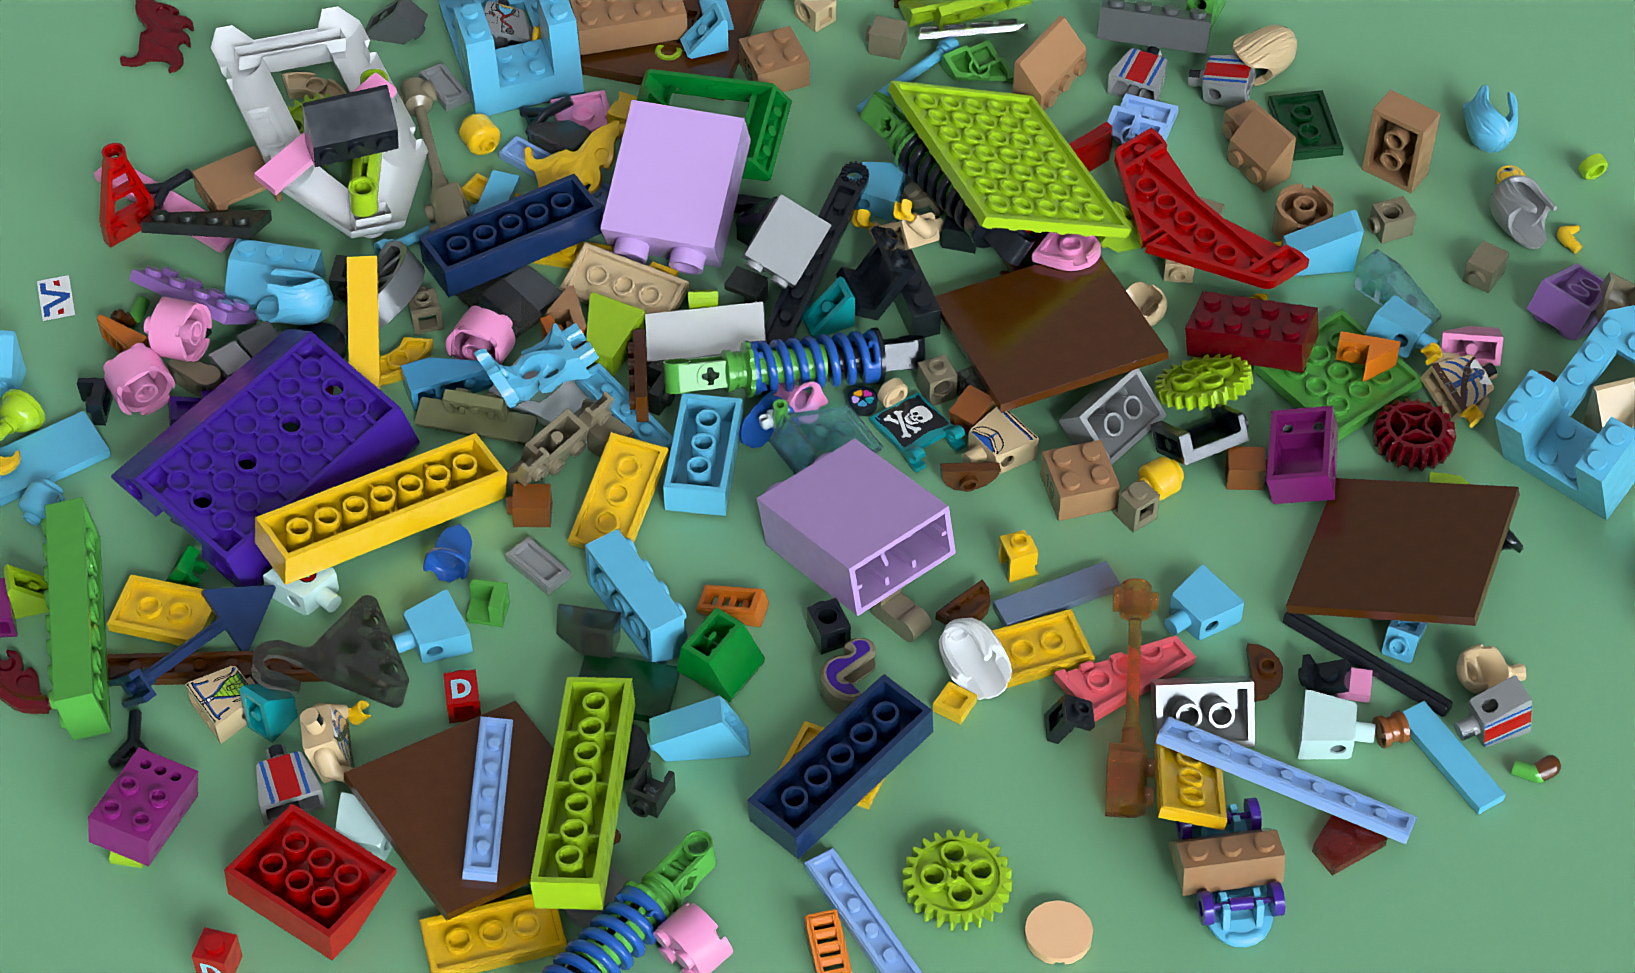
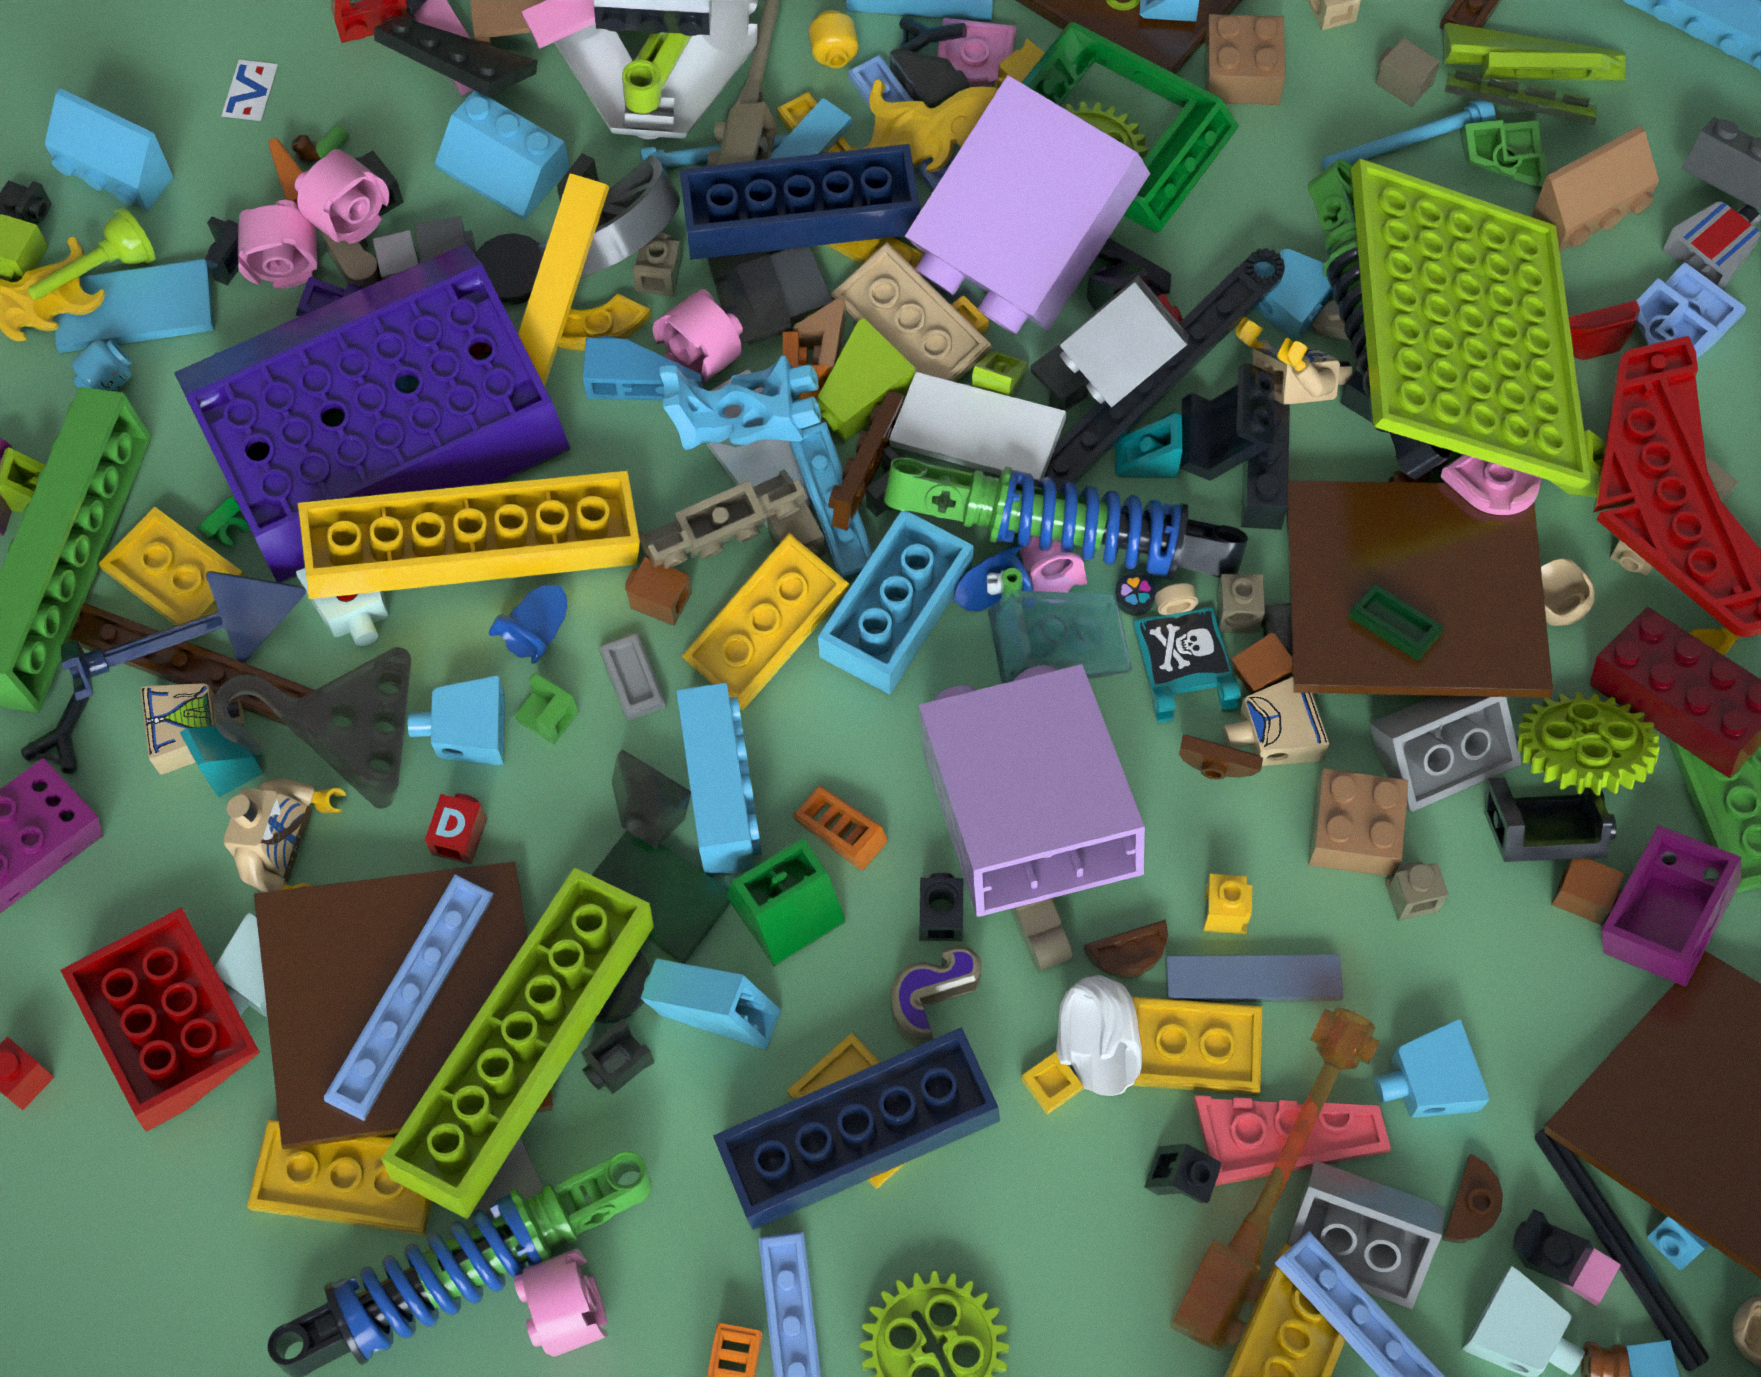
camera: 25 degrees right, 15 degrees up
(169, 284) = (394, 151): medium lavender plate -> none
(286, 781) = (196, 870): torso -> none
(301, 302) = (509, 206): medium azure hair -> none
(474, 413) = (649, 442): olive bracket -> none
(1048, 347) = (1396, 621): none -> dark green tile
(1162, 475) = (1466, 860): yellow head -> none

